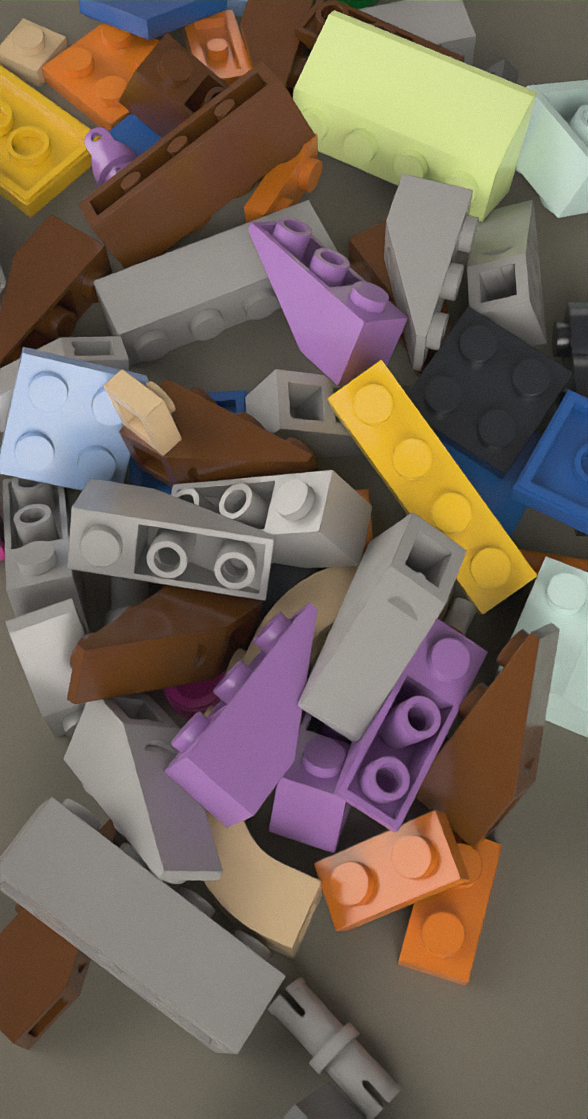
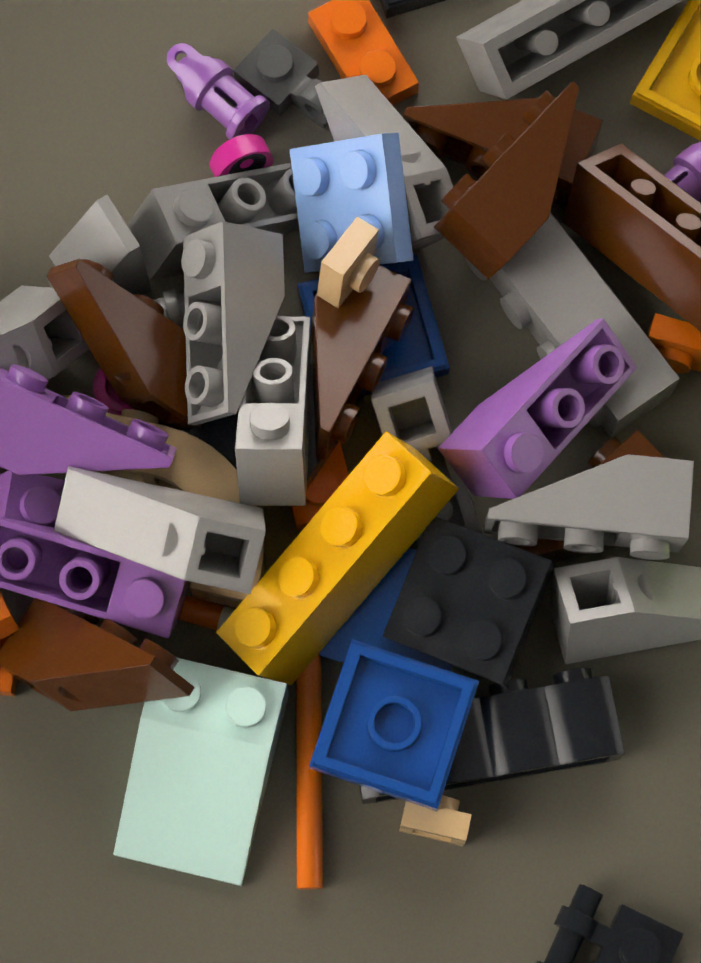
camera: 75 degrees right, 10 degrees up
(105, 274) = (515, 196): none -> reddish brown slope

